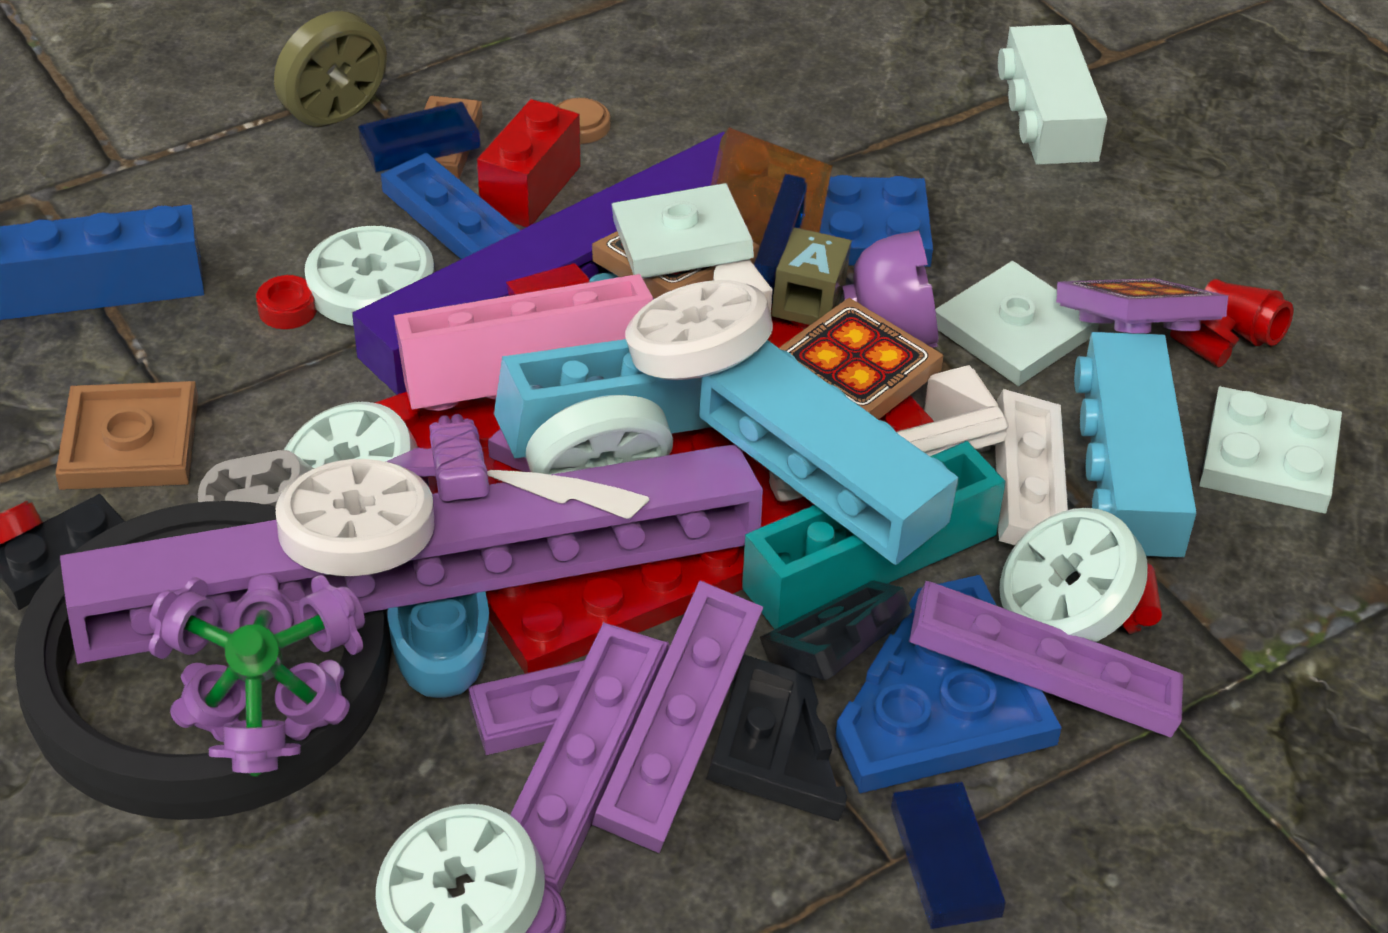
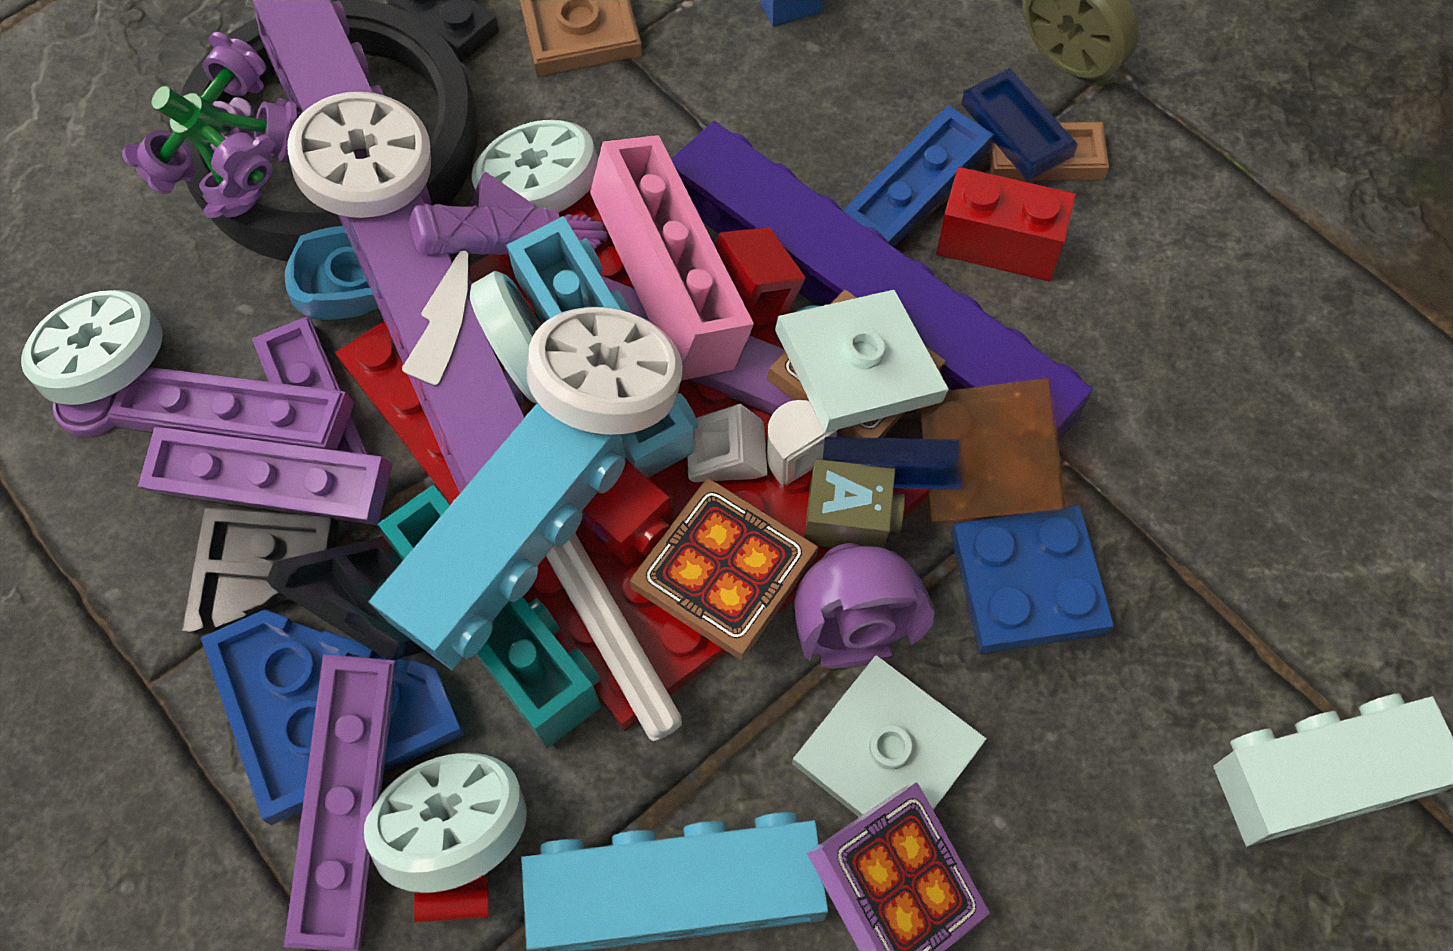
camera: 85 degrees right, 20 degrees up
(255, 474) = (499, 113): light grey beam -> none
(285, 302) = (767, 84): red tile -> none
(363, 267) = (821, 106): light aqua wheel -> none
(594, 118) = (1122, 266): medium nougat piece -> none
(947, 855) = (139, 728): clear blue tile -> none
(956, 393) = (715, 698): white slope -> none
(1030, 464) = (627, 776): white plate -> none

